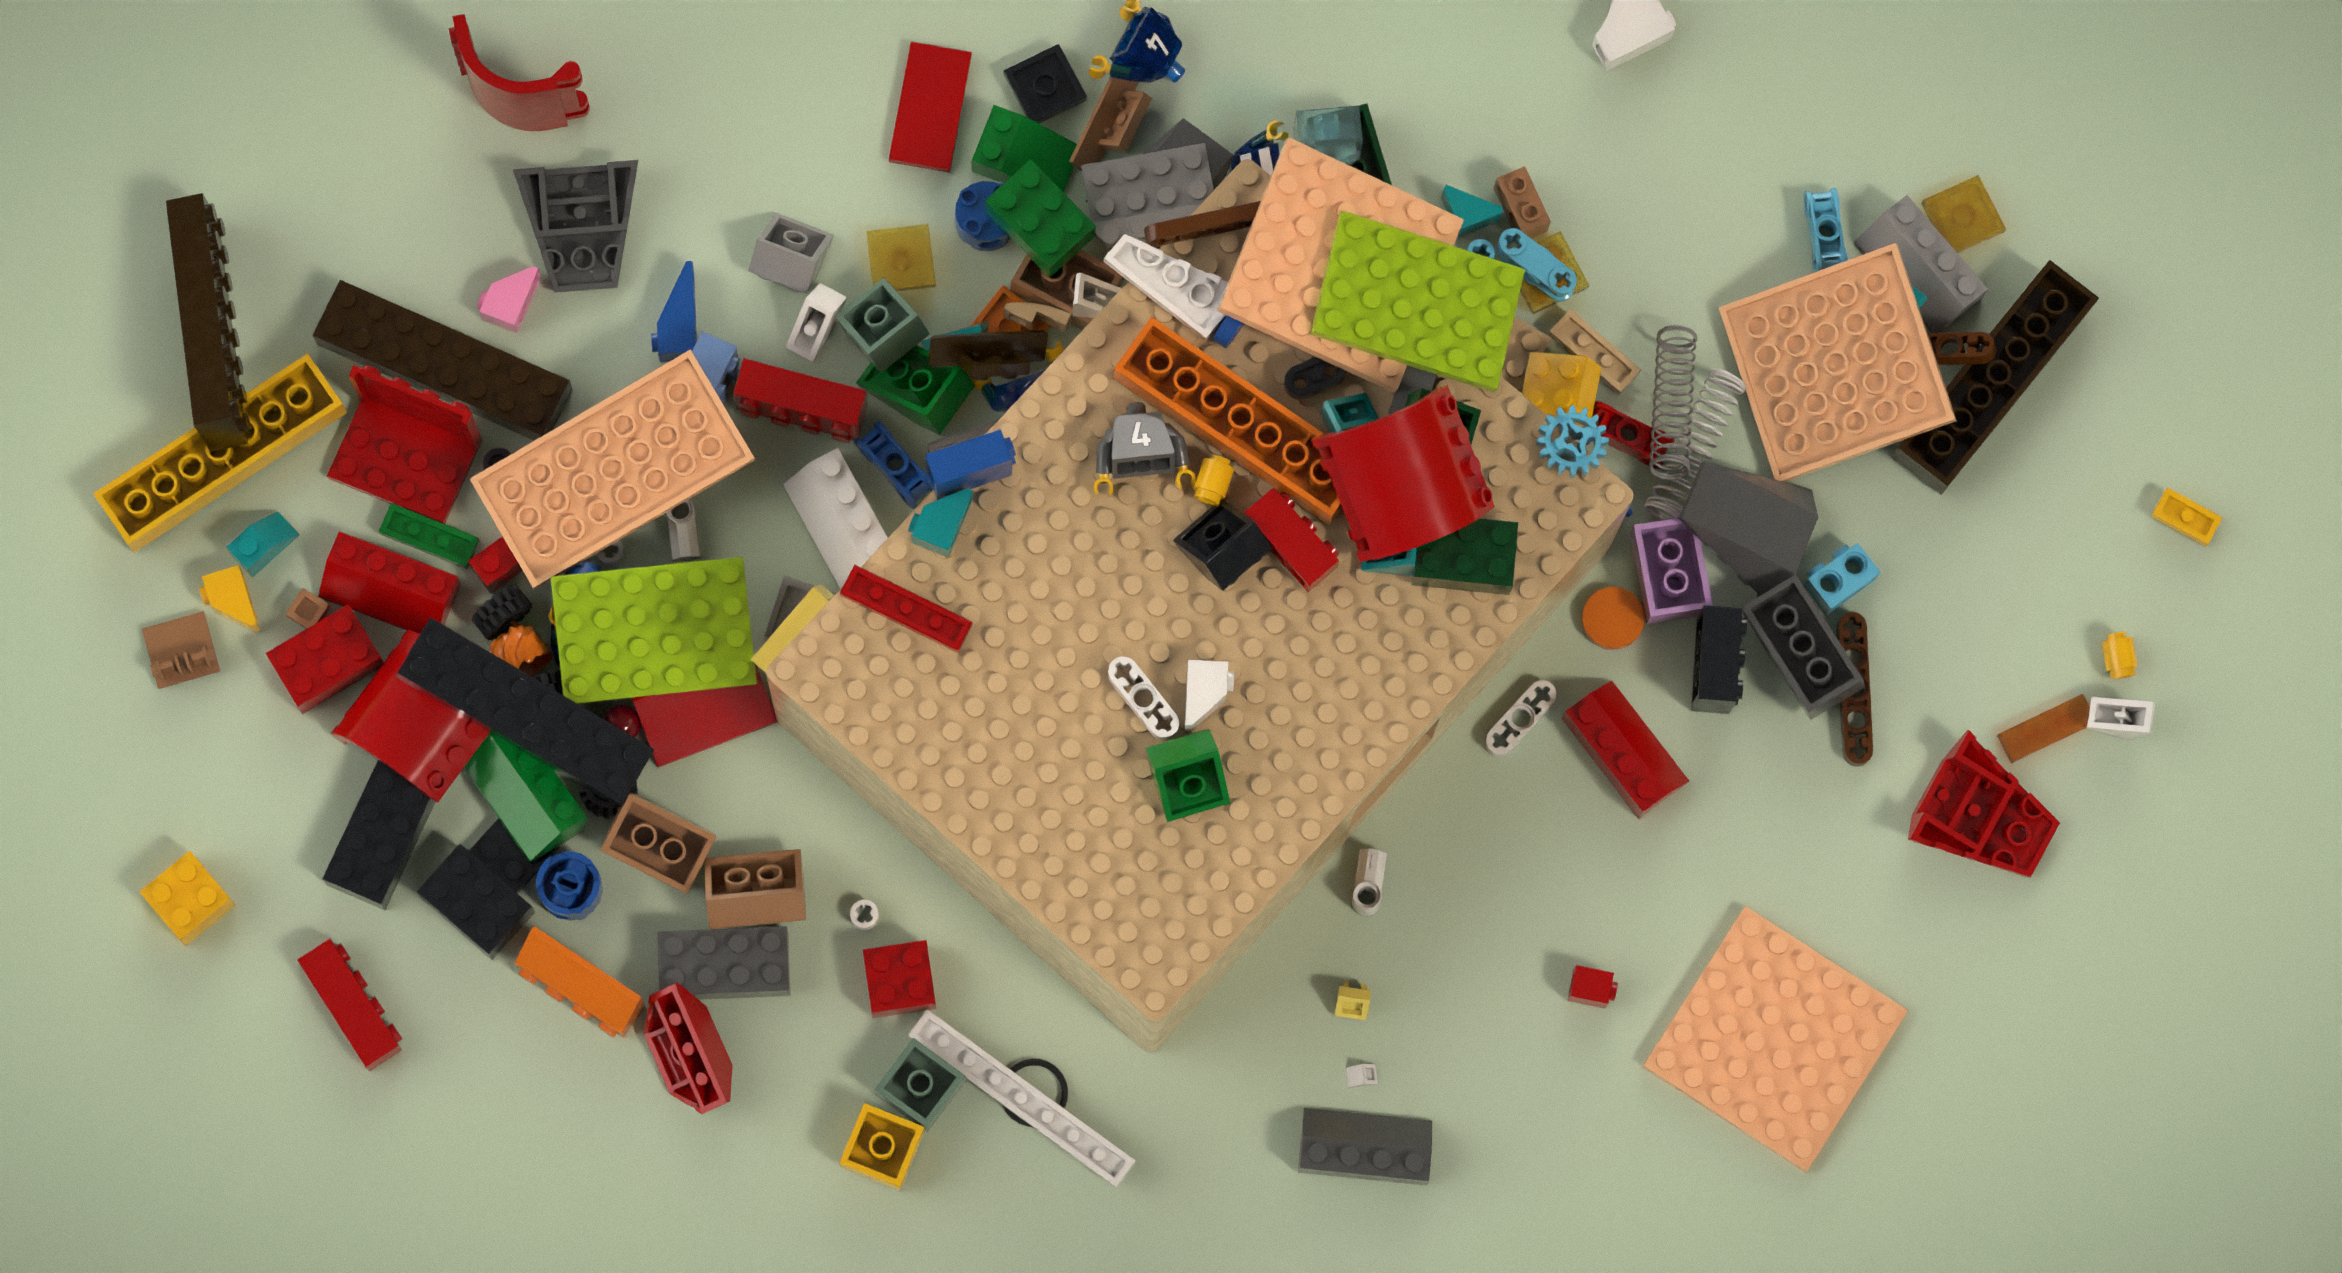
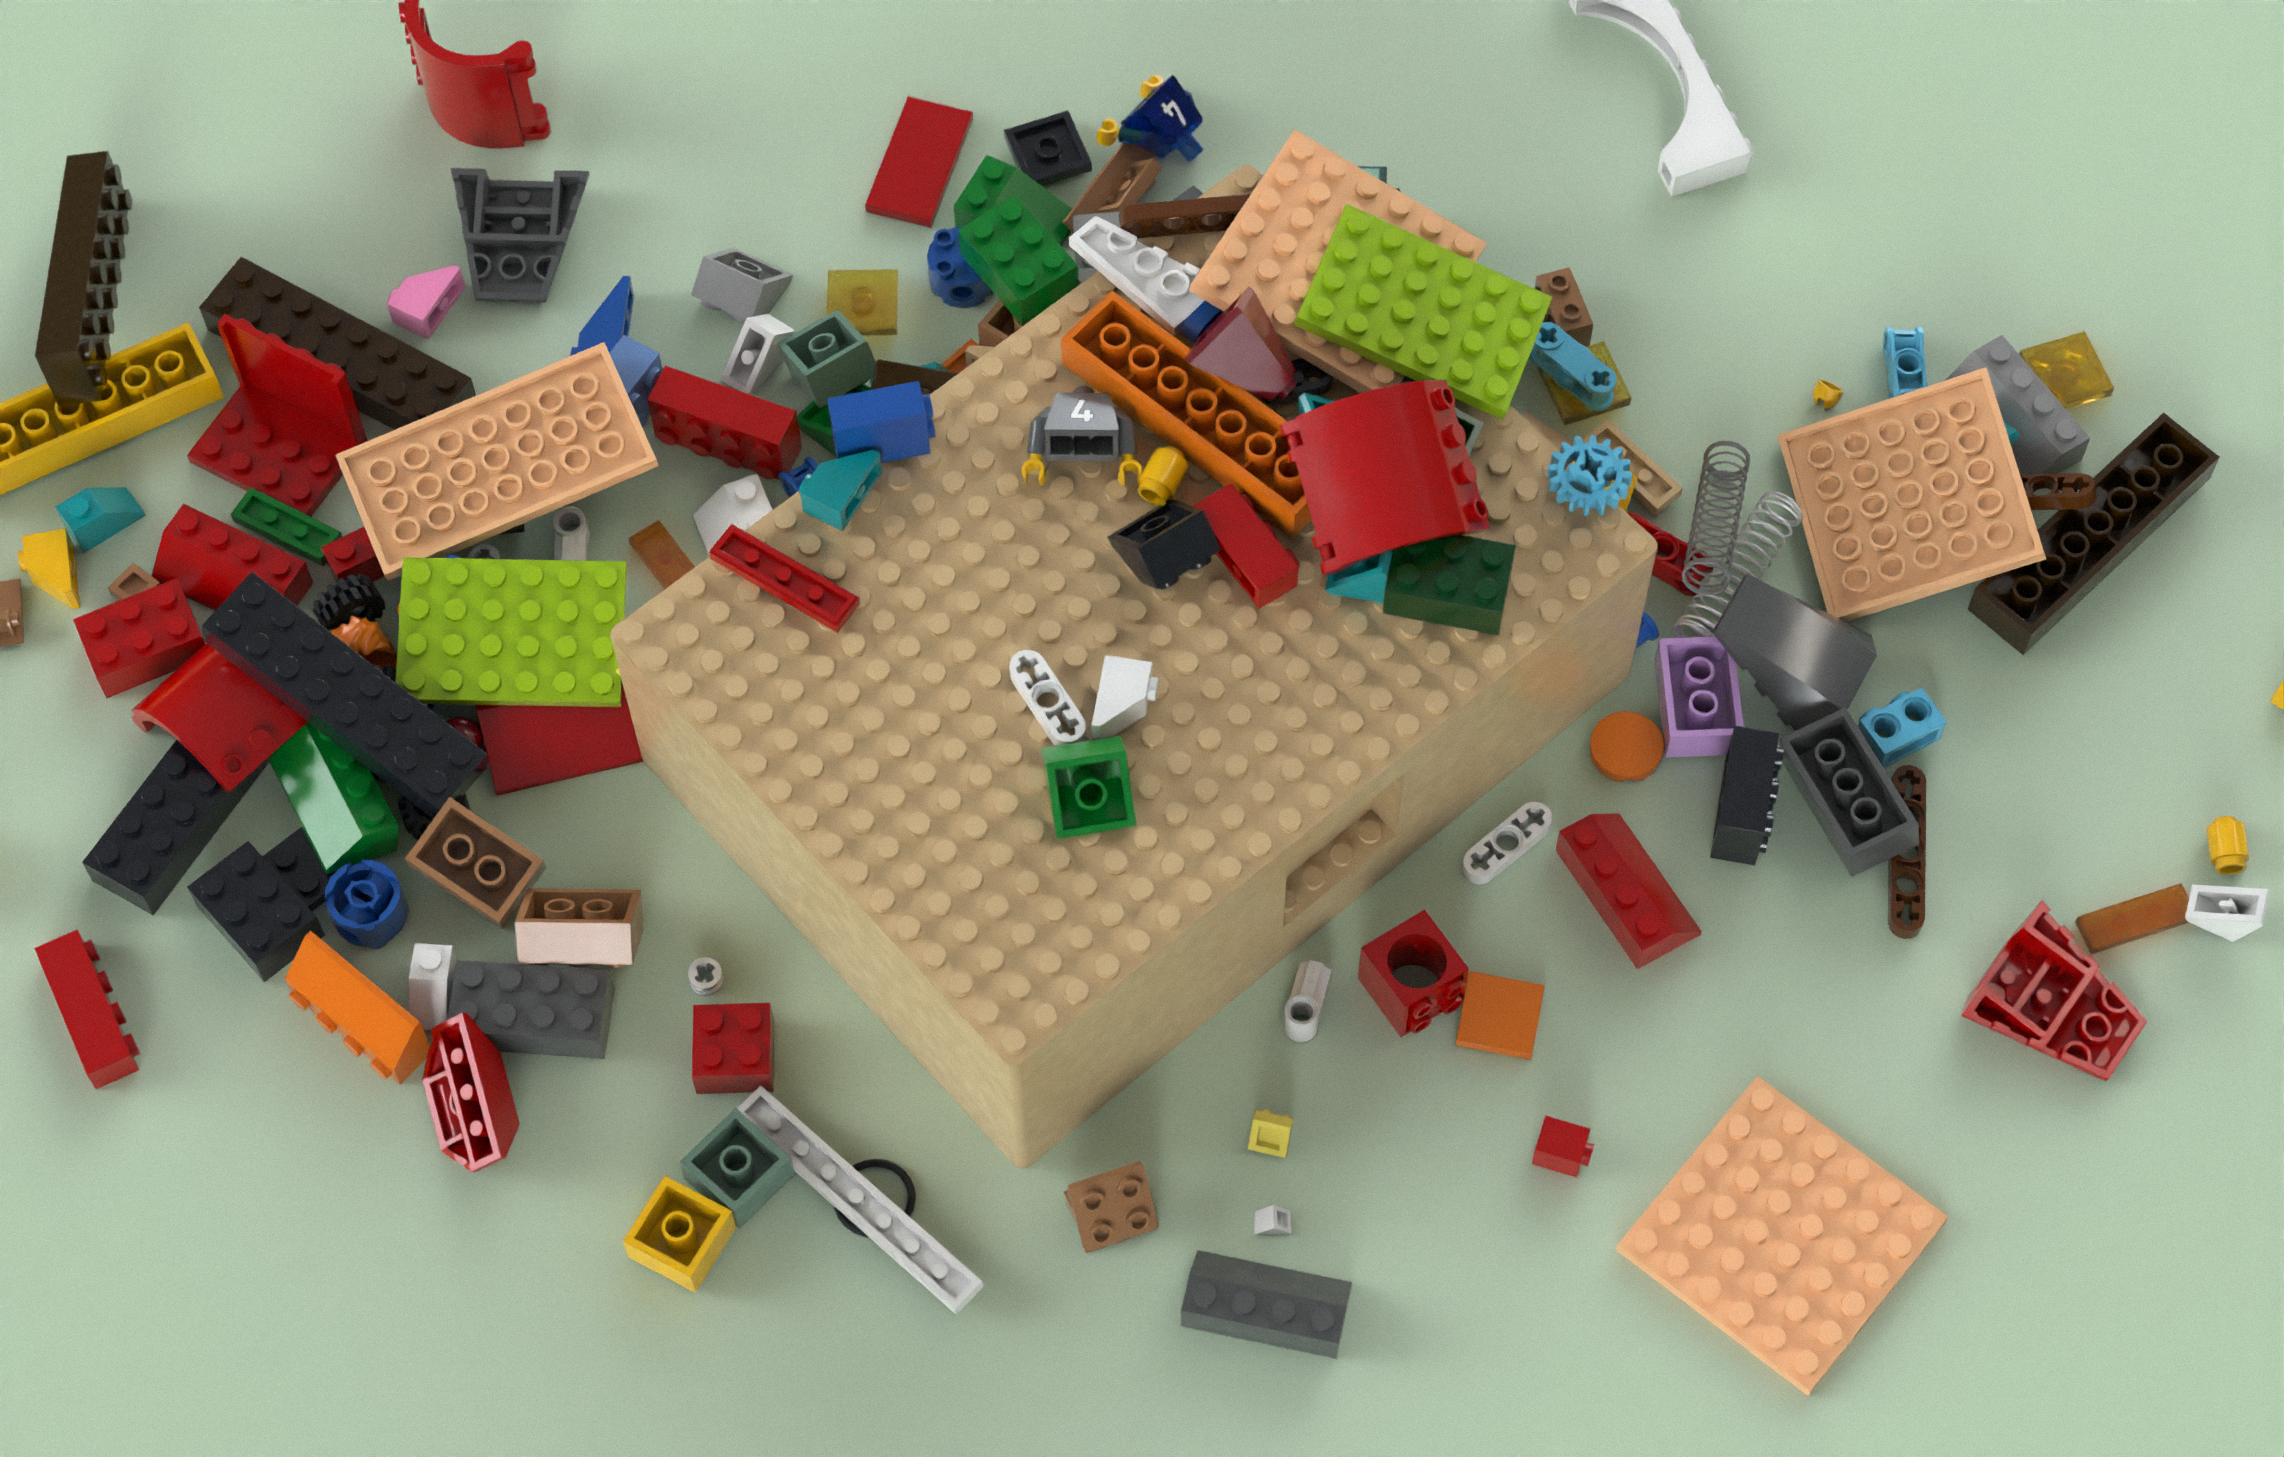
camera: 15 degrees right, 15 degrees down
(637, 954) = (431, 983): none -> white slope
(774, 539) = (661, 554): none -> clear orange tile
(1230, 1080) = (1112, 1206): none -> medium nougat bracket
(1270, 364) = (1245, 350): none -> slope
(1459, 824) = (1420, 944): none -> red brick
(1529, 874) = (1500, 1015): none -> orange tile
(1759, 260) = (1828, 392): none -> yellow hinge

